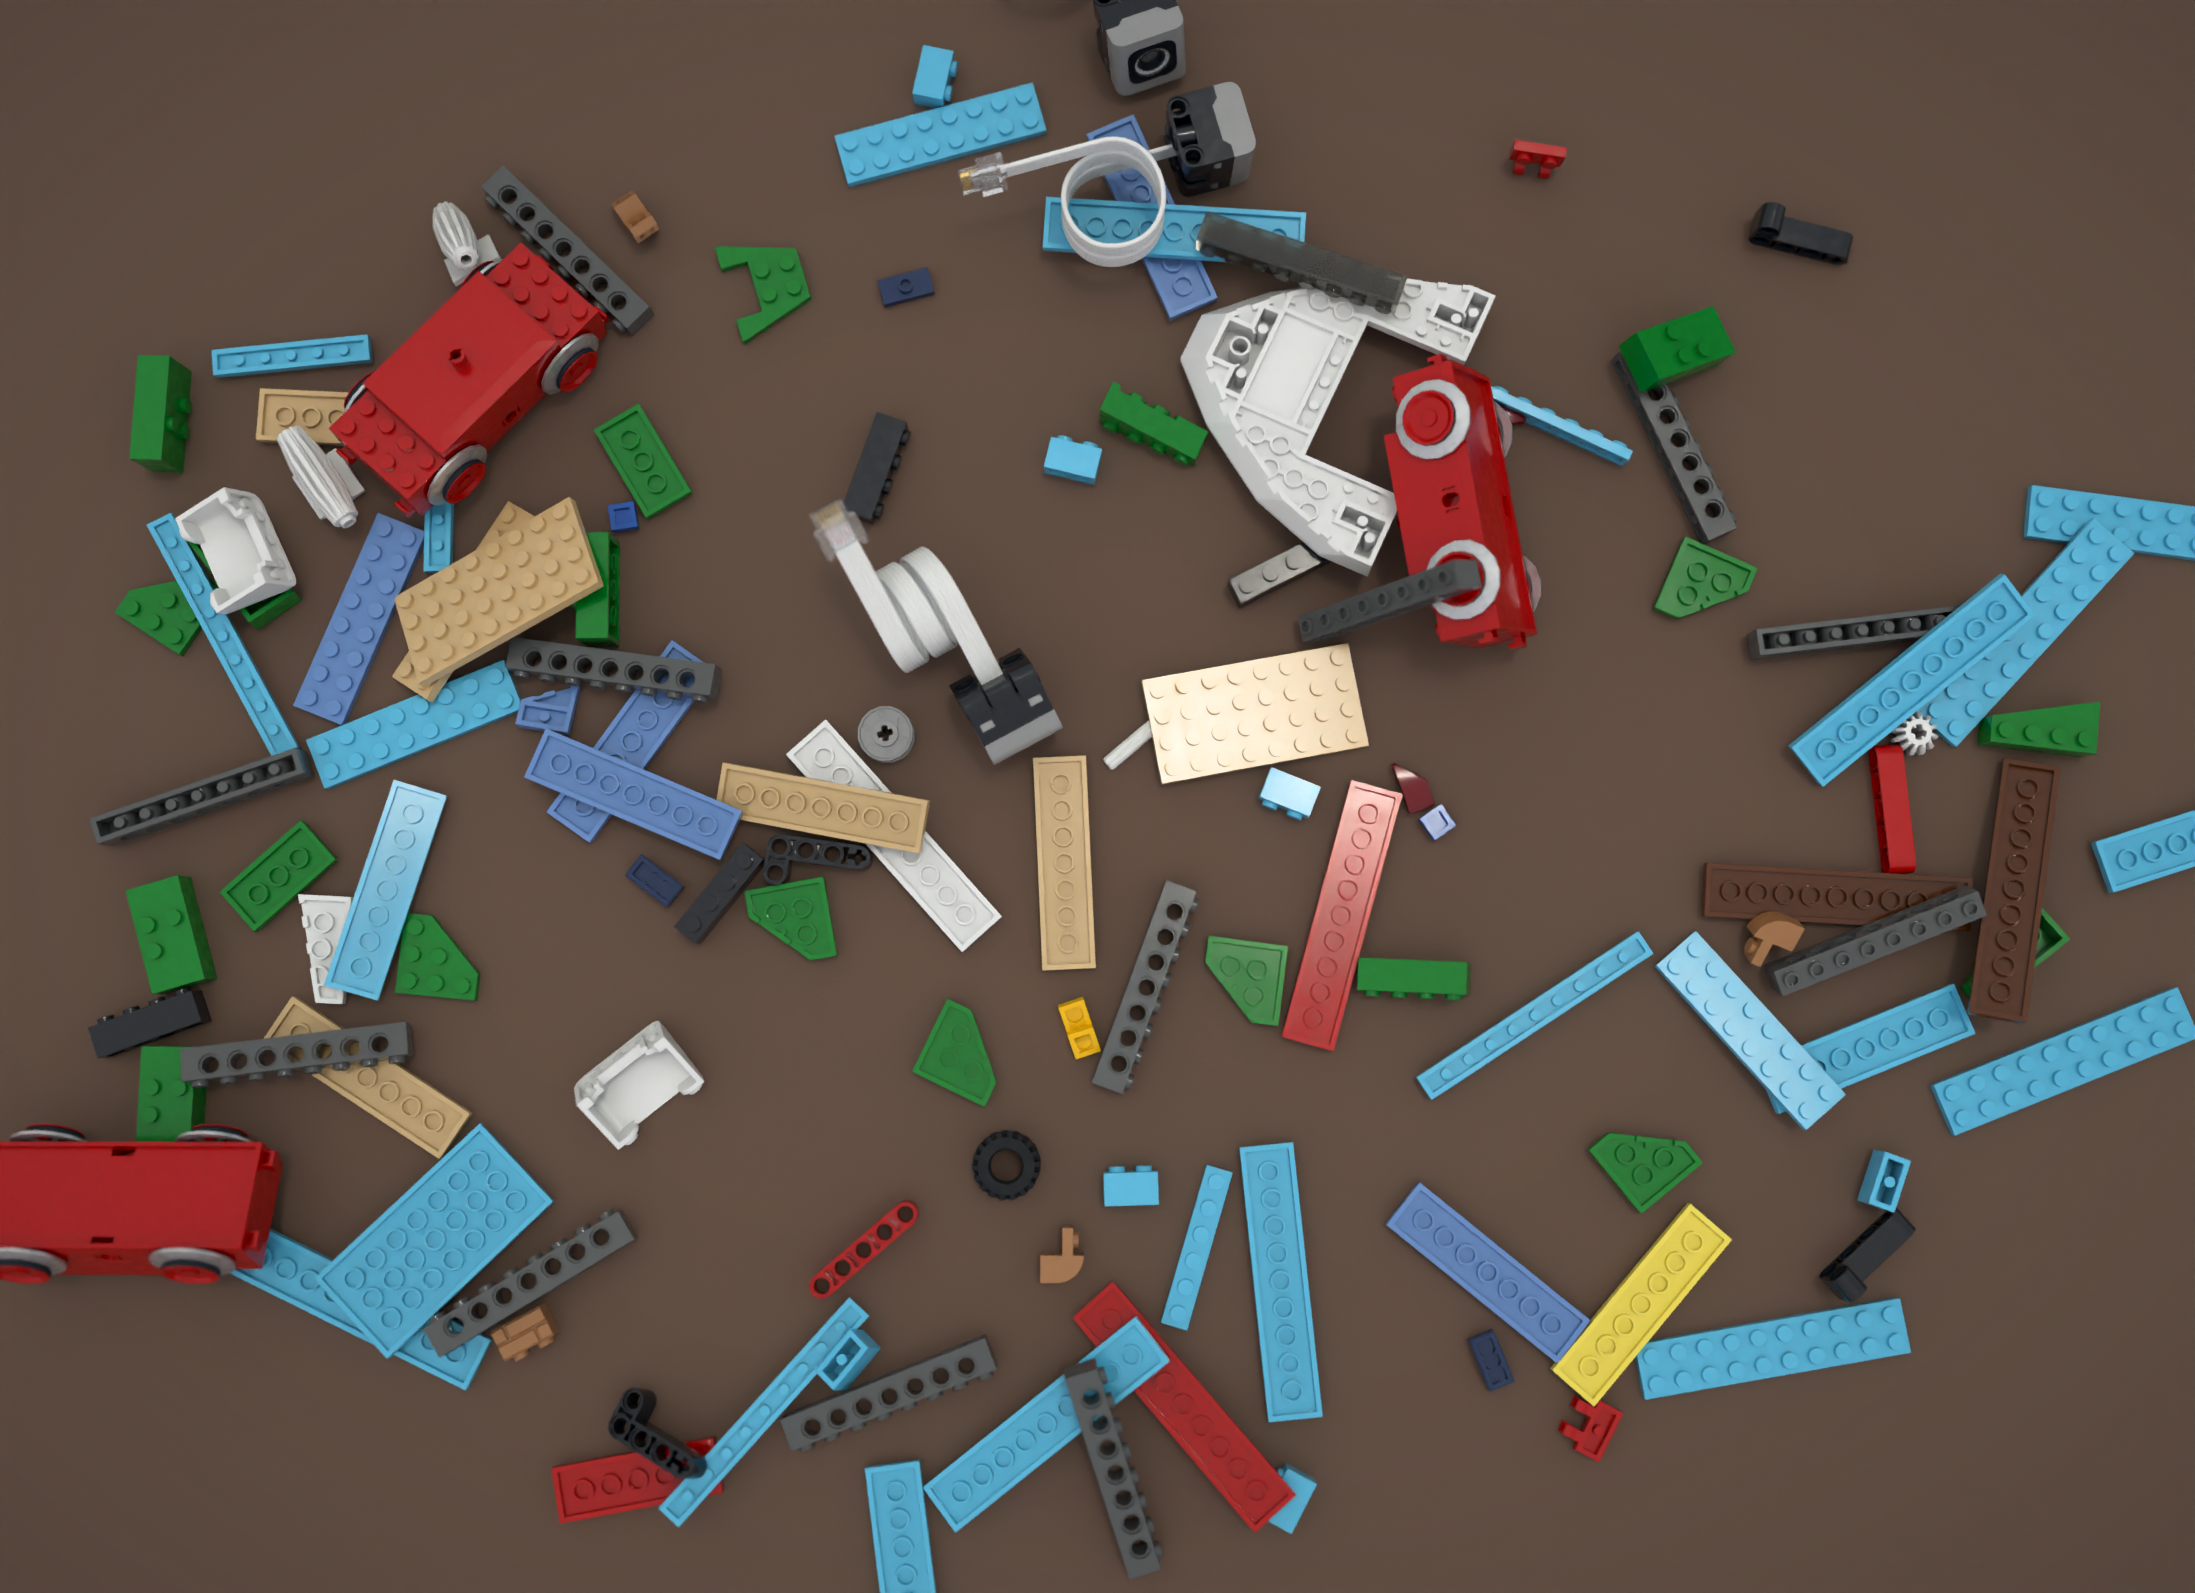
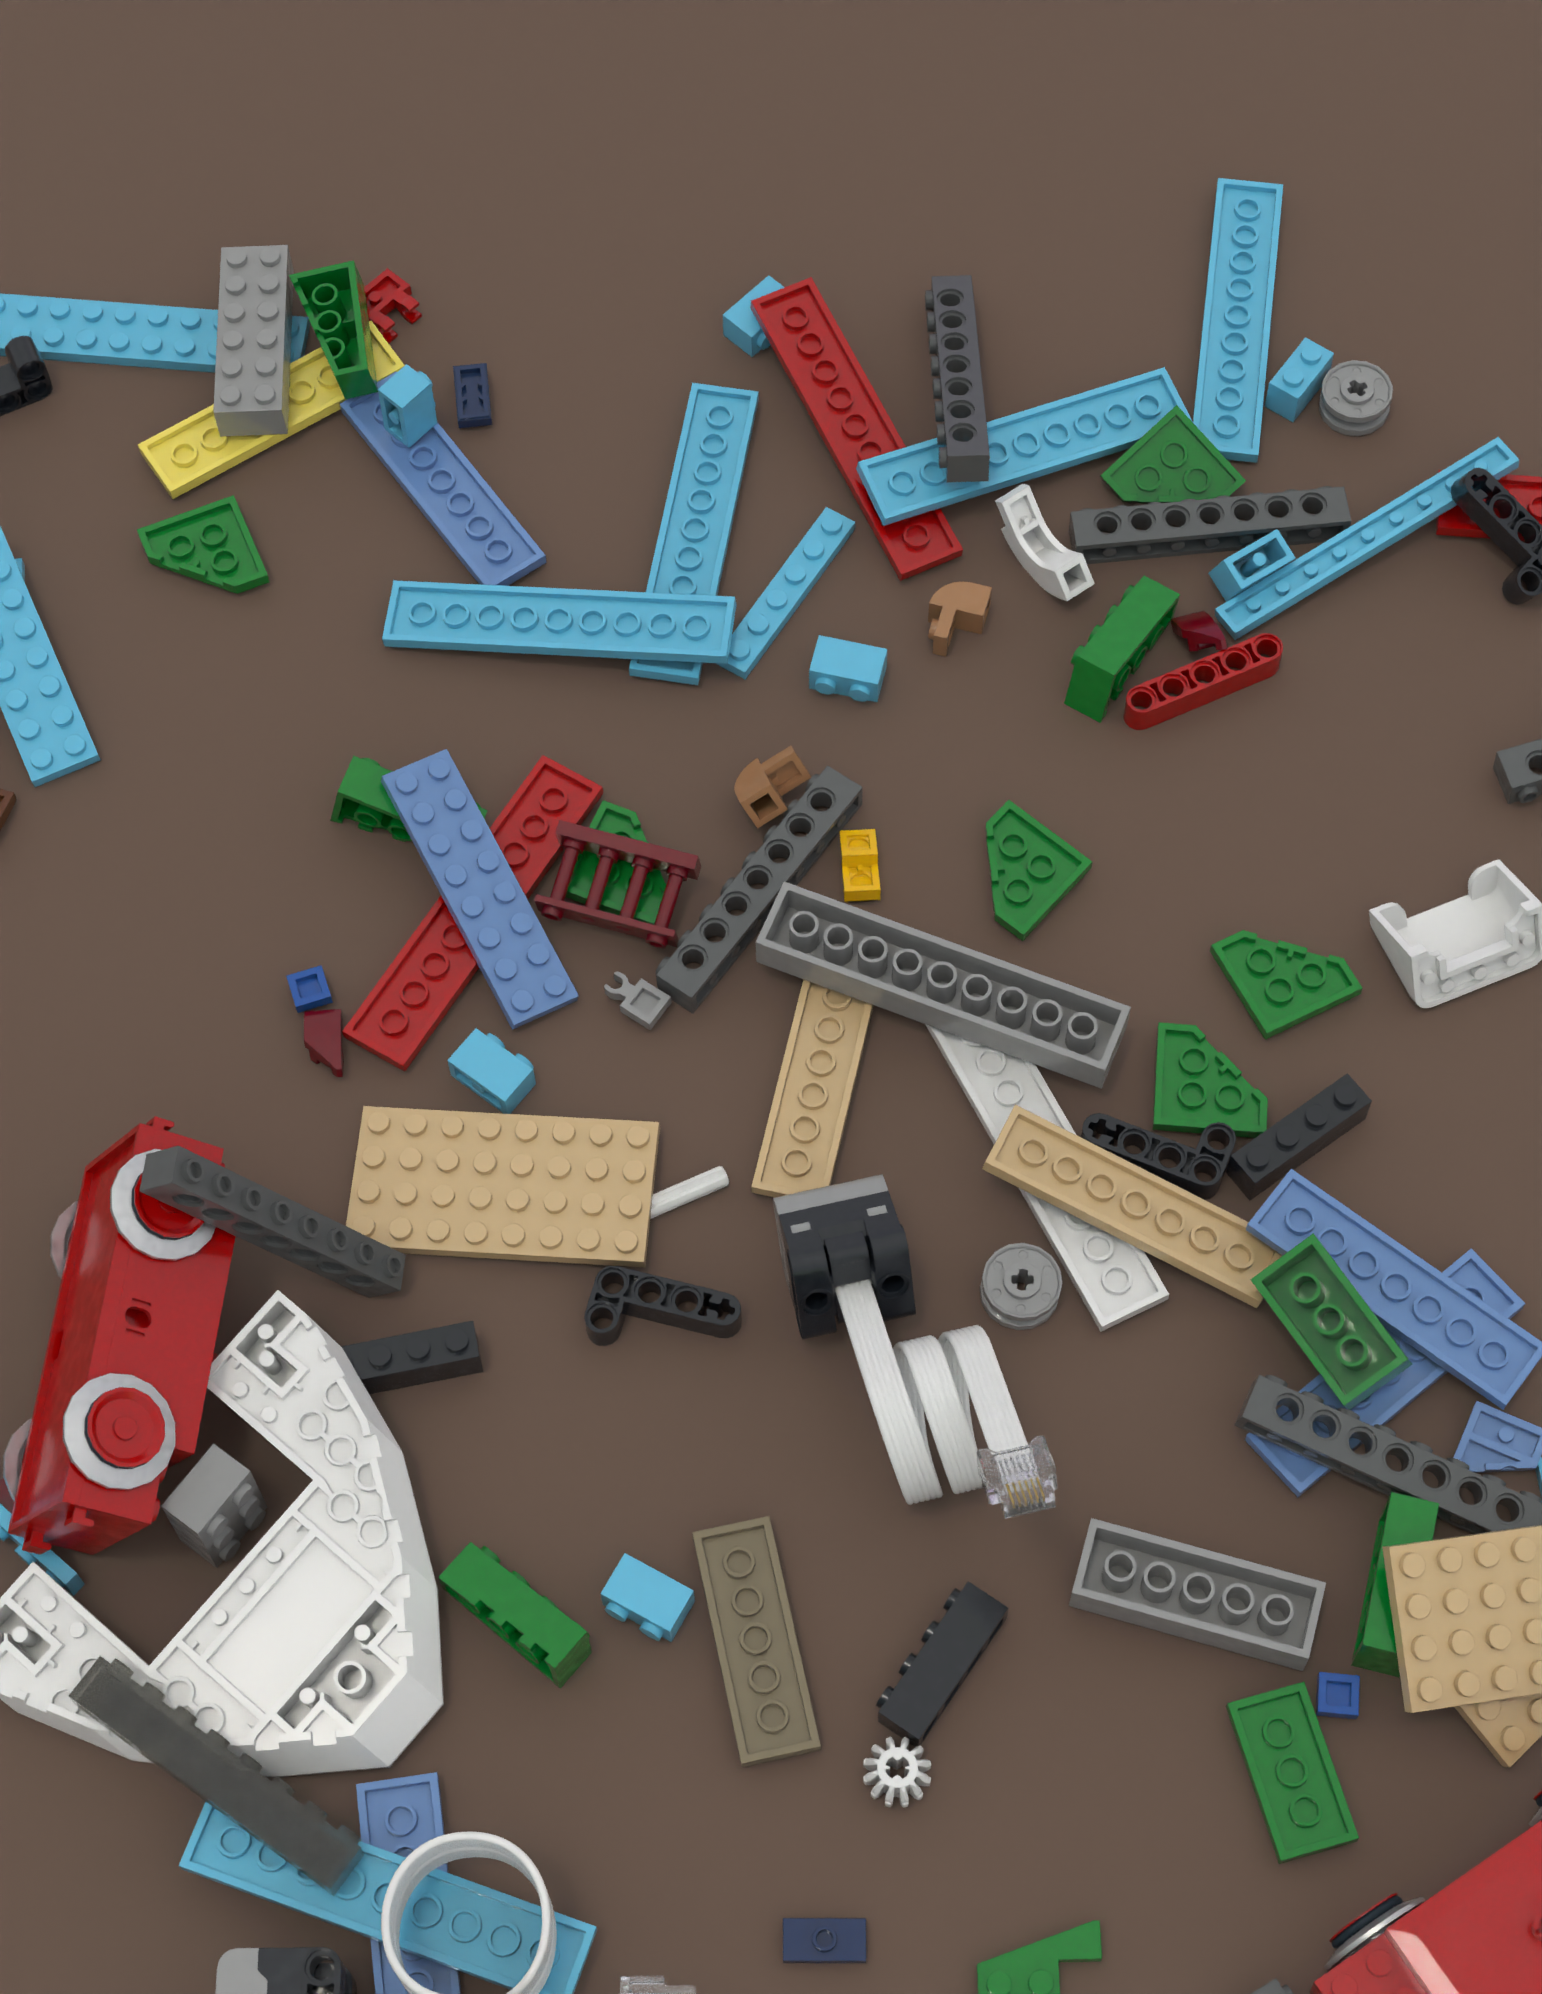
camera: 160 degrees left, 20 degrees down
(654, 880) = (1388, 1180): dark blue plate -> none
(670, 749) = (1331, 1322): none -> green brick
(723, 552) = (1198, 1594): none -> light grey brick
(756, 1014) = (1282, 980): none -> green plate
(799, 1563) = (1355, 398): none -> light grey wheel
(847, 1551) = (1298, 379): none -> medium azure brick
(877, 1292) = (1199, 630): none -> dark red slope
(885, 386) = (897, 1758): none -> white gear
(928, 1438) = (1172, 465): none -> green plate
(931, 1261) = (1119, 646): none -> green wedge
(982, 1165) = (1003, 703): black tyre -> none
(992, 932) = (942, 984): none -> light grey brick
(997, 454) = (756, 1641): none -> dark tan plate
(1011, 1331) = (1039, 552): none -> white arch
(1118, 654) = (663, 1310): none -> black beam
(1166, 1066) = (763, 784): none -> medium nougat brick
(1201, 876) = (640, 1002): none -> light grey plate
(1258, 979) = (609, 850): none -> dark red fence
(1343, 925) = (479, 889): none -> medium blue plate
(1356, 1165) = (560, 621): none -> medium azure plate
(1362, 430) = (215, 1506): none -> light grey brick
(1532, 1320) = (408, 405): none -> medium azure brick
(1534, 1015) = (272, 737): medium azure plate -> none
(1616, 1390) = (339, 316): none -> green wedge
(1677, 1355) = (253, 341): none -> light grey brick

